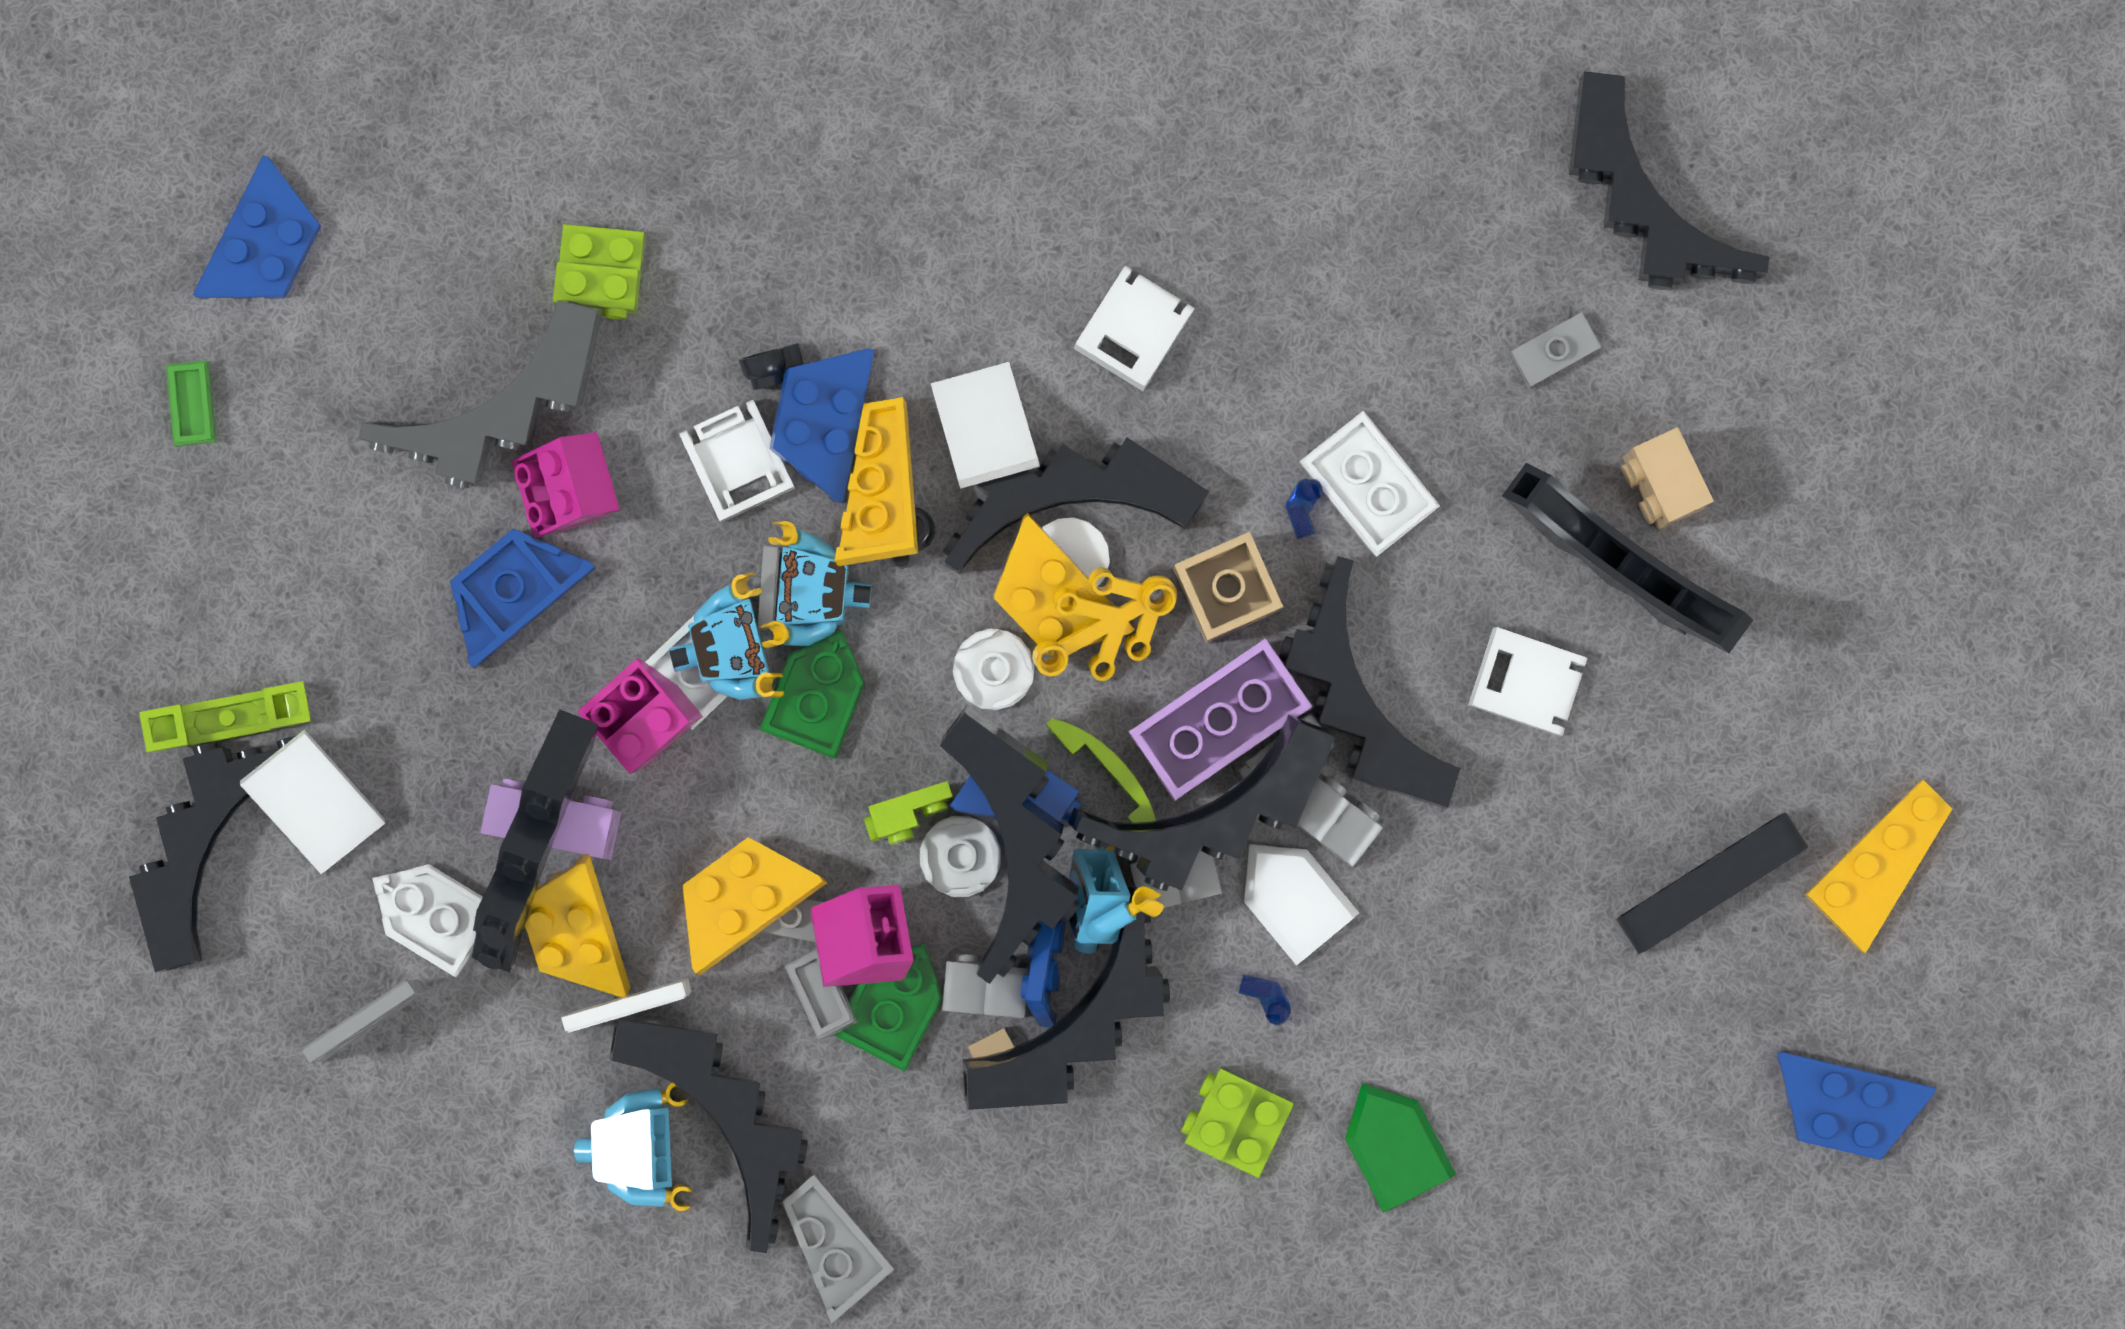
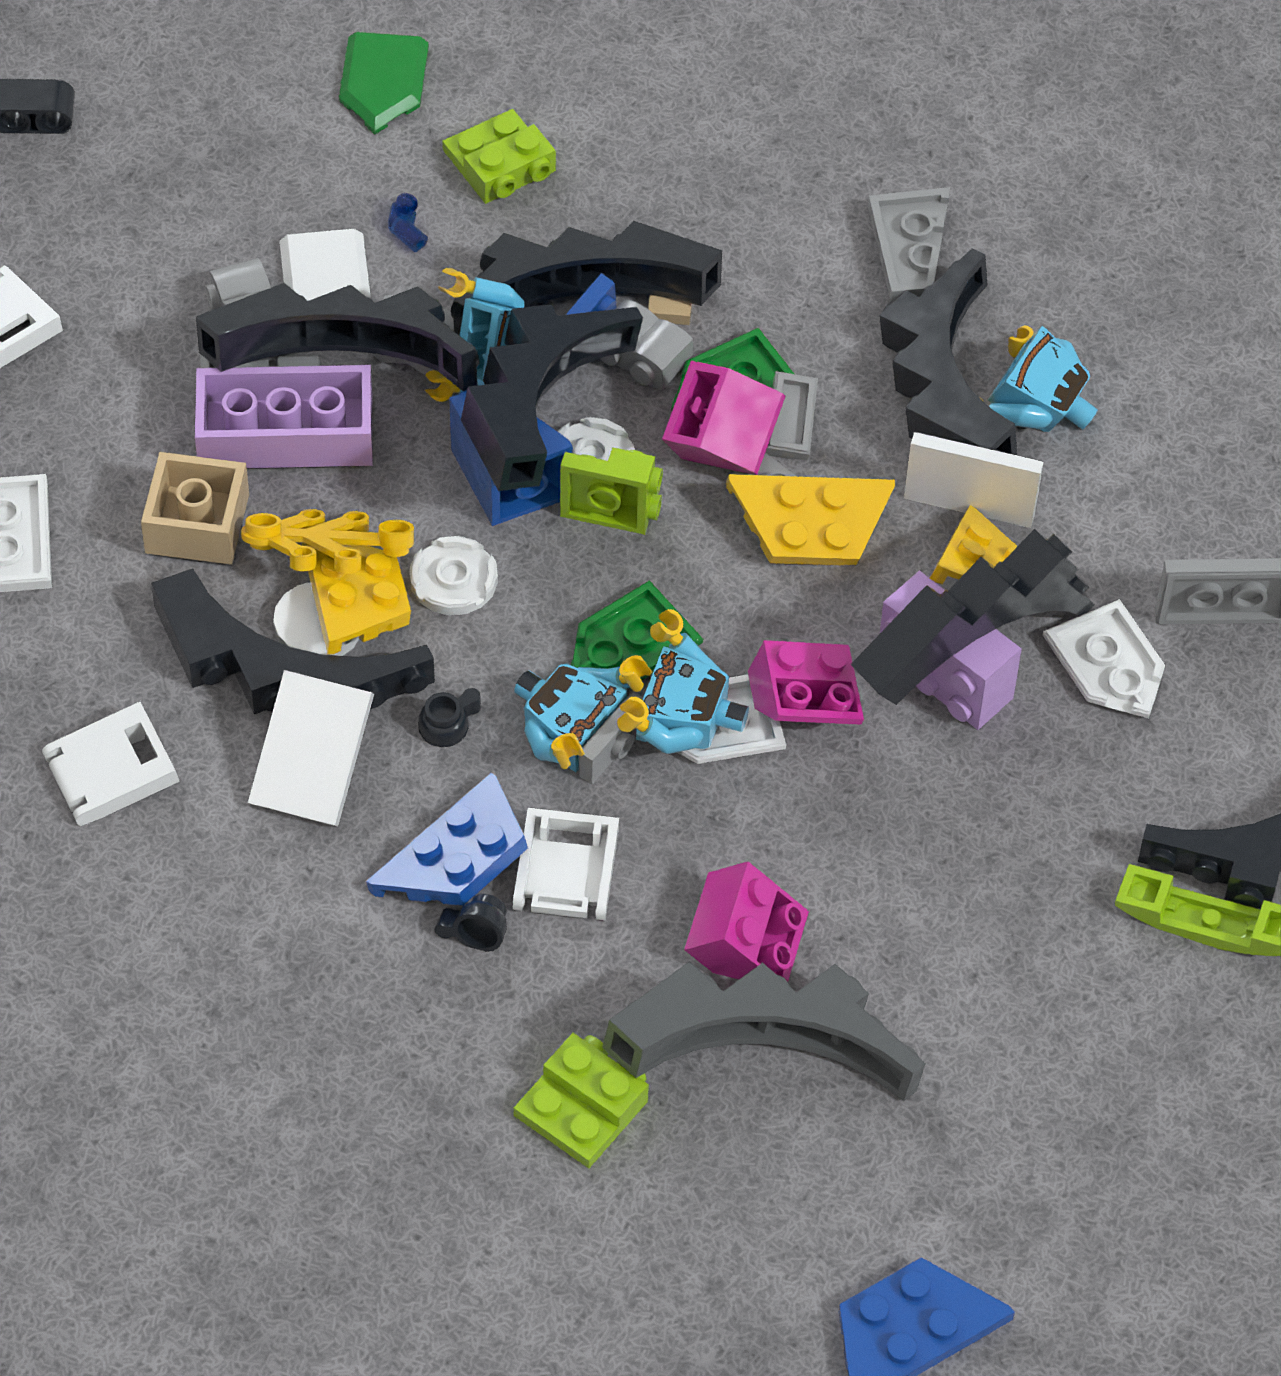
camera: 150 degrees left, 30 degrees down
(191, 403) = (1078, 1217): bright green tile -> none
(312, 801) = (1168, 791): white tile -> none
(511, 589) = (858, 873): blue wing -> none
(881, 495) = (451, 743): yellow wing -> none
(1075, 739) = (417, 471): lime slope -> none
(1301, 503) = (67, 554): clear blue arm -> none
(1326, 657) = (165, 382): black arch -> none

